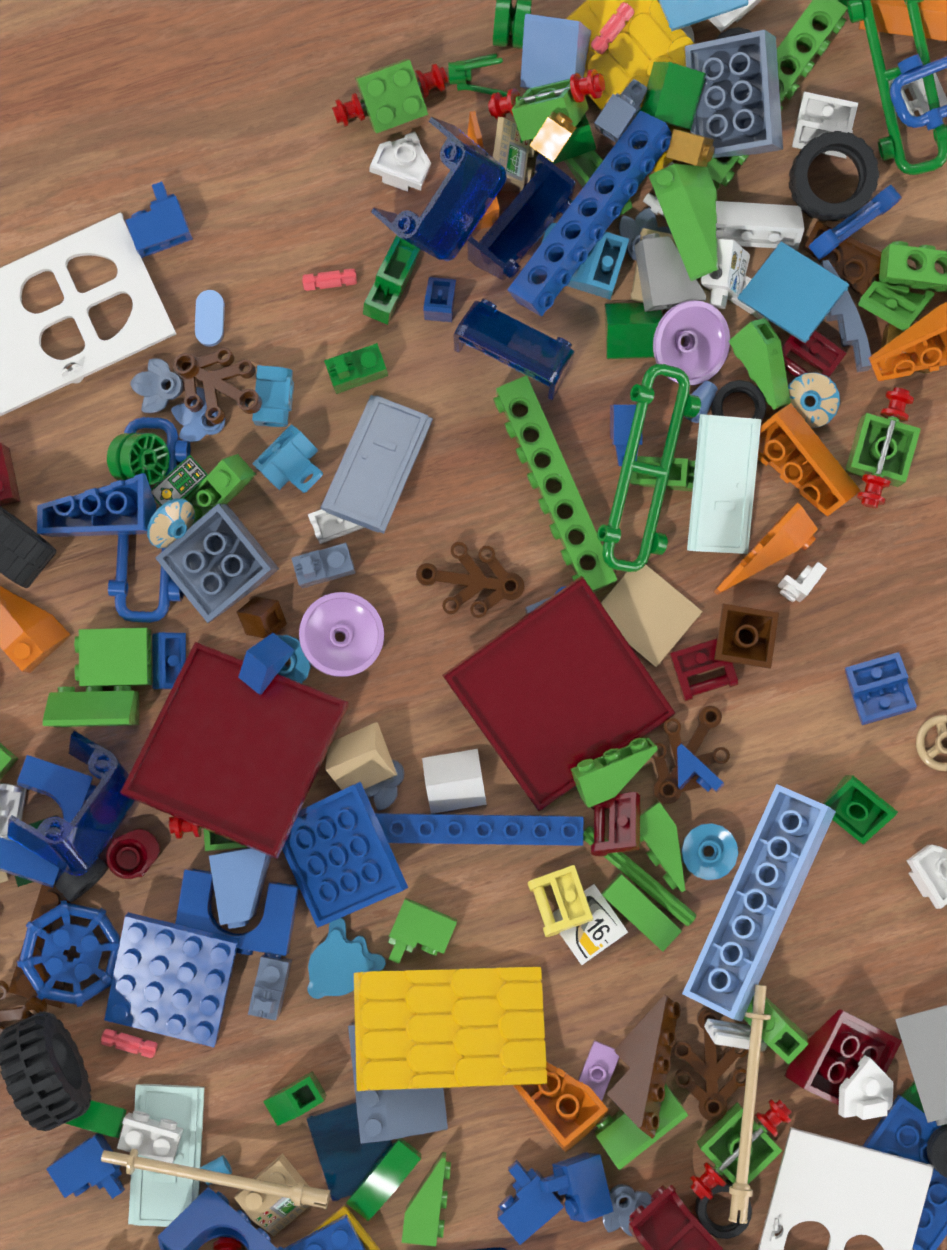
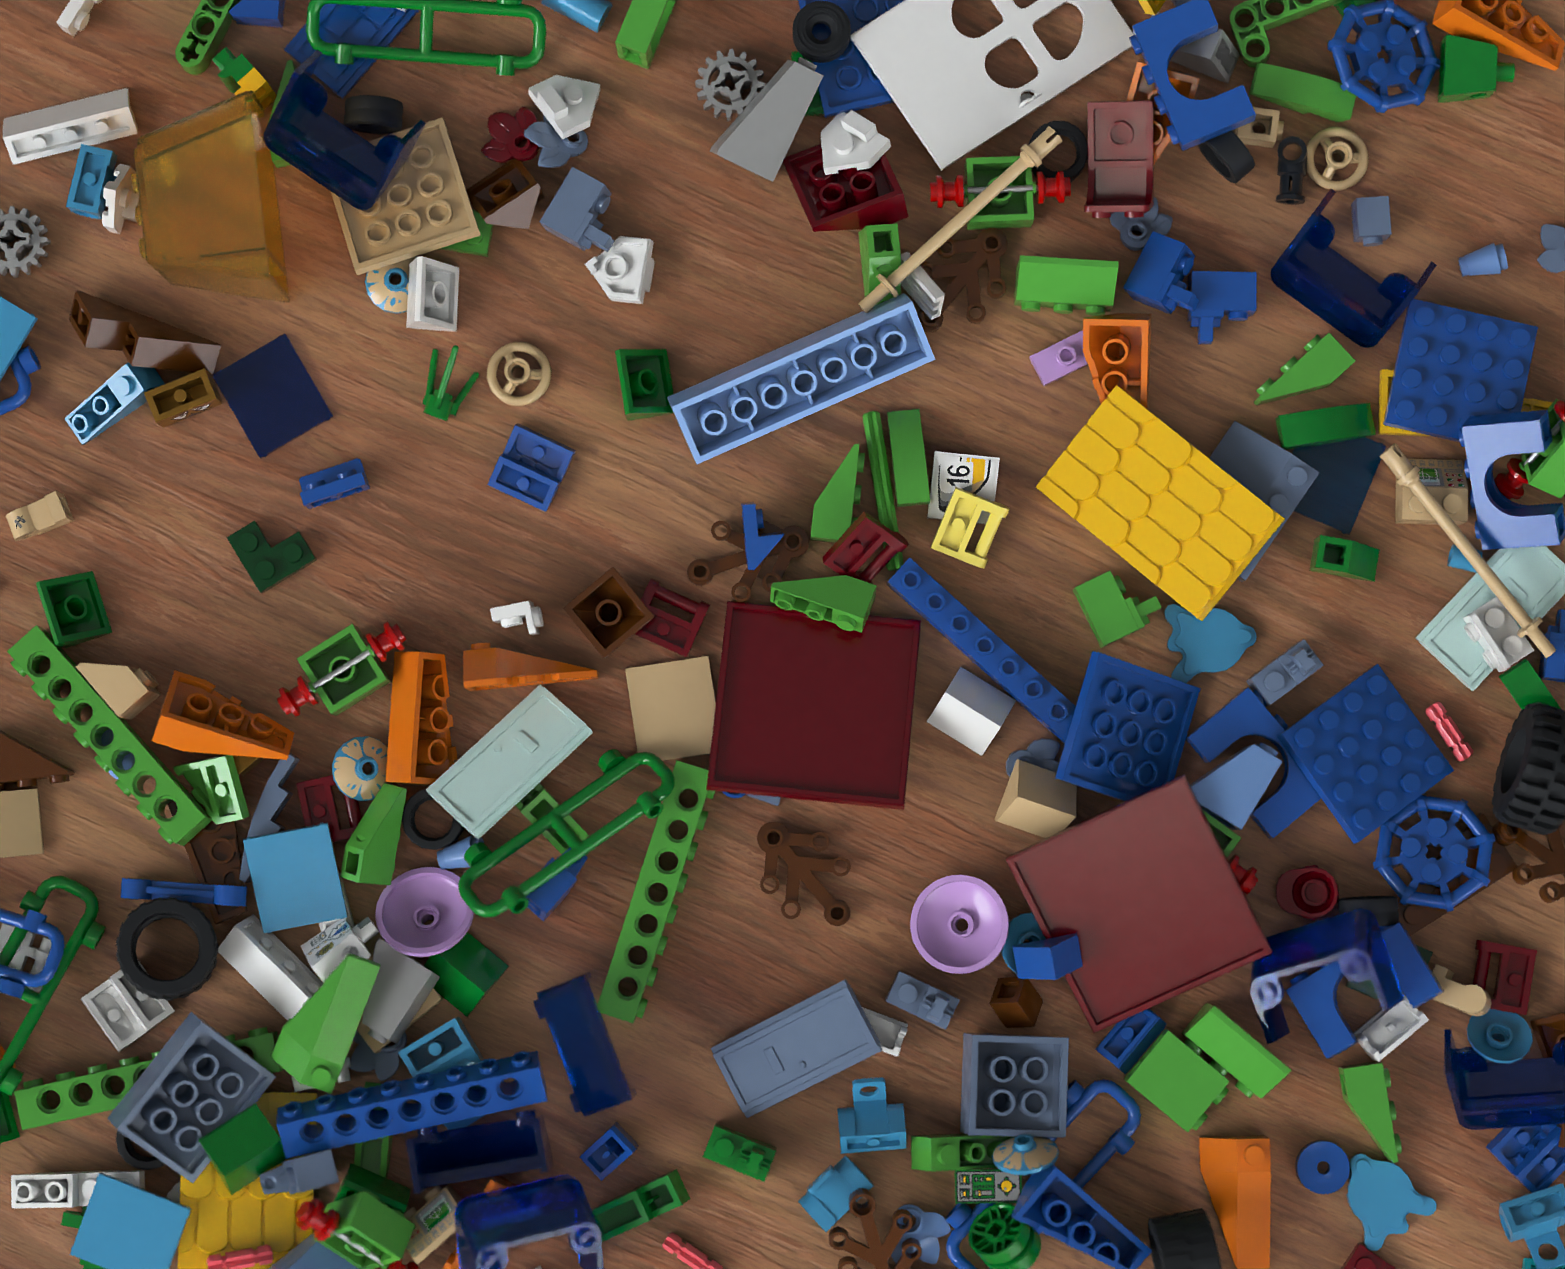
camera: 140 degrees left, 0 degrees up
(553, 135) = (388, 1199): brick -> none
(648, 1056) = (1011, 331): reddish brown slope -> none
(690, 148) = (272, 1084): pearl gold brick -> none
(721, 860) = (804, 441): dark azure dish -> none

